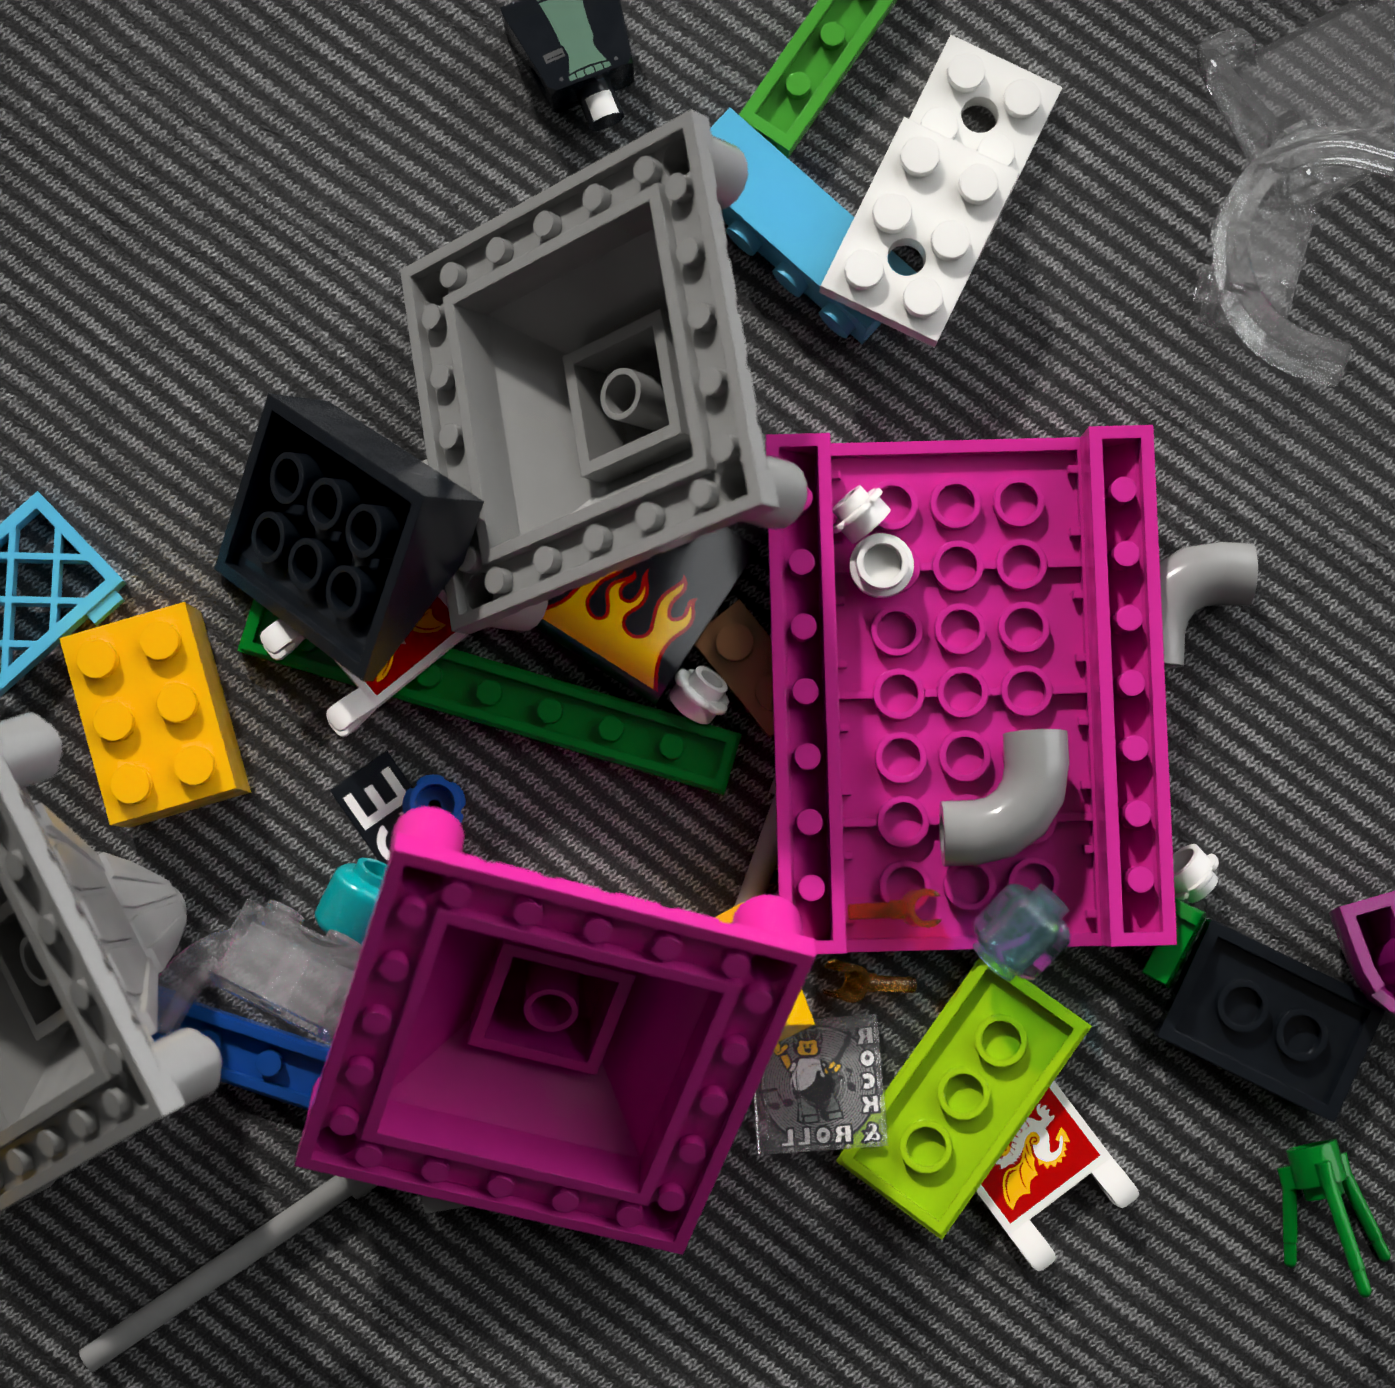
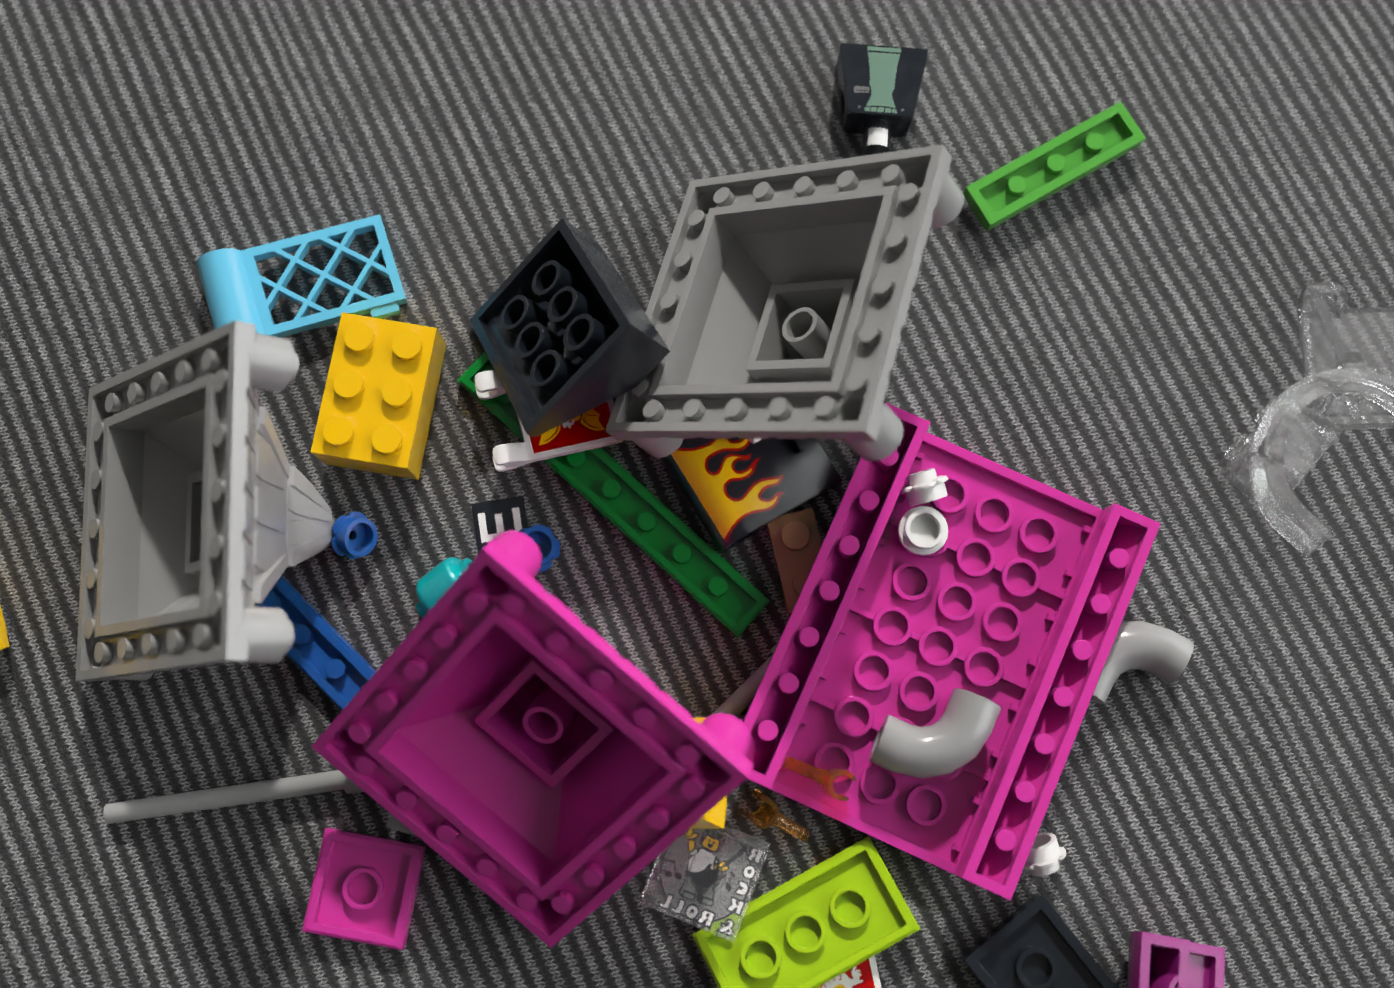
camera: 25 degrees right, 5 degrees down
(221, 899) = (363, 535): none -> blue plate
(267, 963) = (364, 595): clear piece -> none
(432, 1295) = (364, 888): none -> dark pink tile
(699, 694) = (754, 559): white plate -> none
(792, 225) = (978, 291): medium azure brick -> none
(940, 191) = (1081, 298): white bracket -> none
(1021, 931) = (902, 835): clear light blue head -> none
(1167, 959) = (998, 907): green tile -> none

